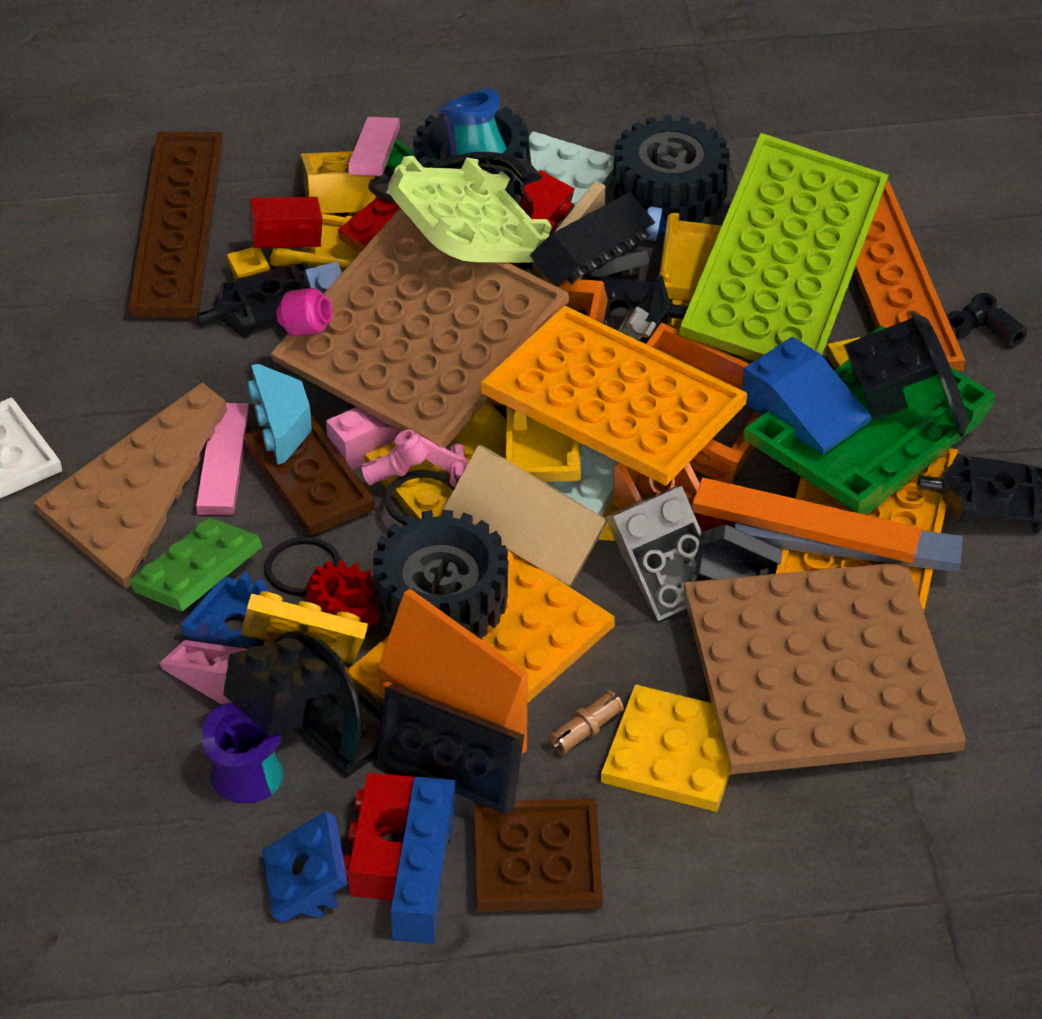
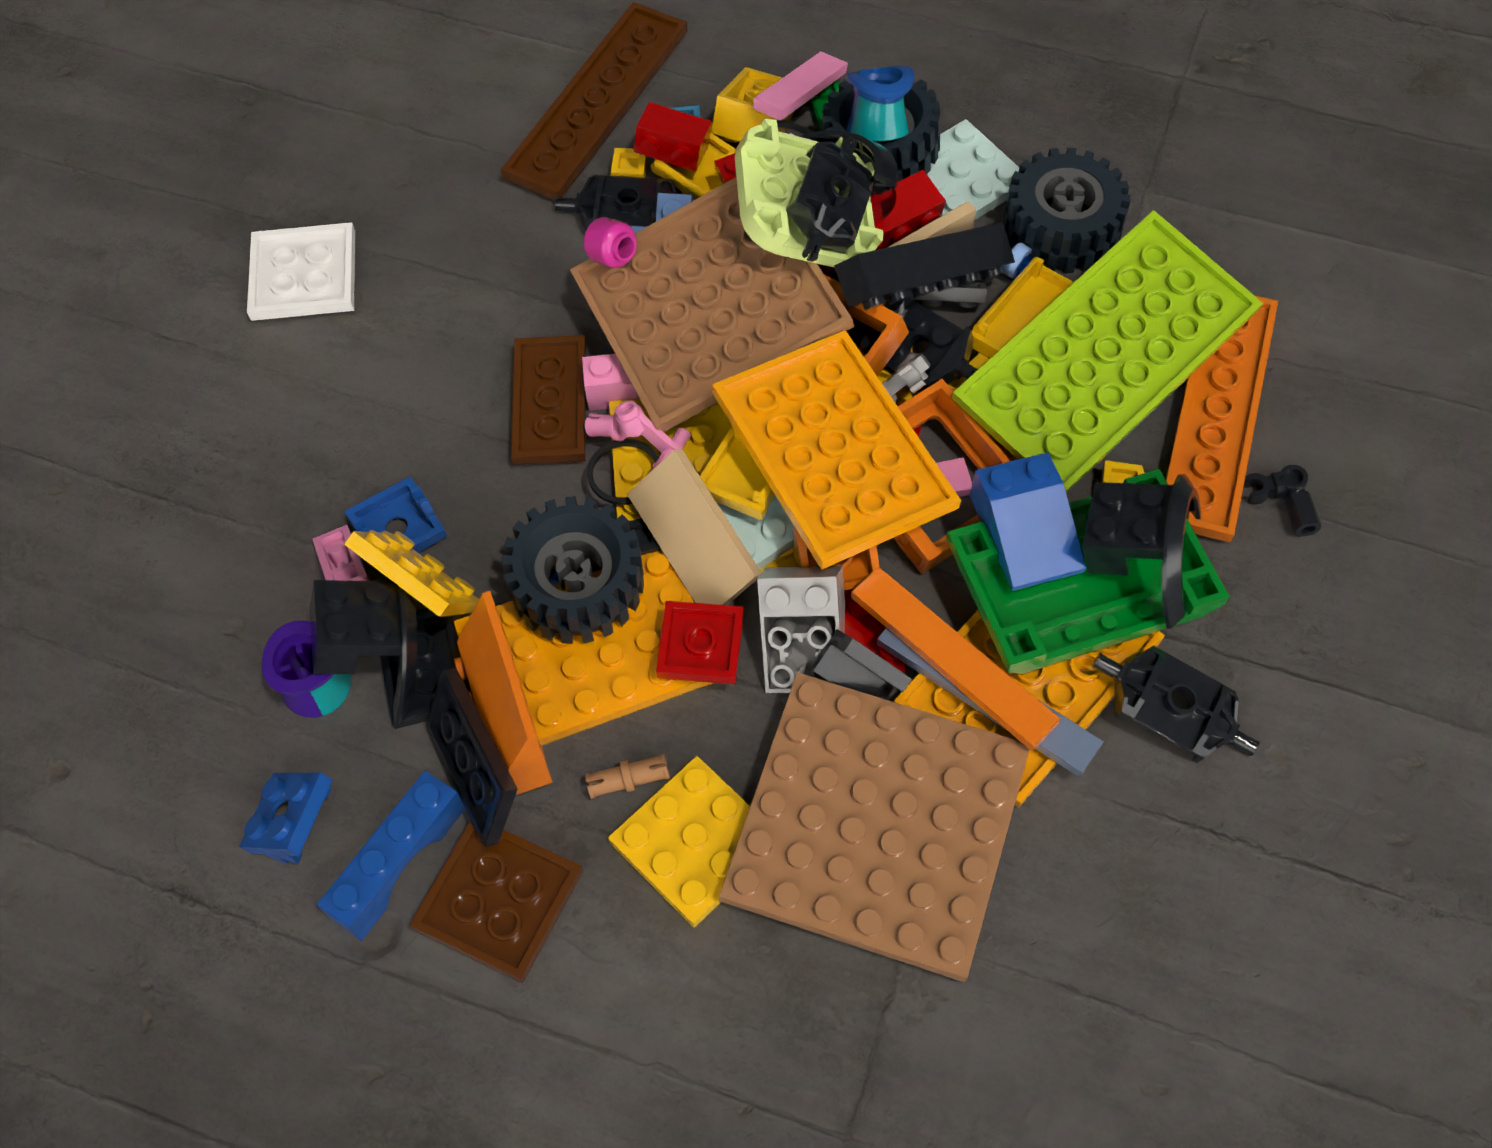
camera: 30 degrees right, 15 degrees up
(123, 495) = (380, 356): medium nougat wing -> none
(195, 564) = (396, 453): bright green plate -> none
(223, 463) = (489, 354): bright pink tile -> none
(281, 409) = (551, 332): medium azure slope -> none
(289, 543) = (487, 464): black piece -> none
(343, 590) = (485, 555): red gear -> none
(382, 811) = (385, 785): red arch -> none
(498, 202) = (822, 213): none -> black plate
(586, 594) = (700, 642): none -> red plate

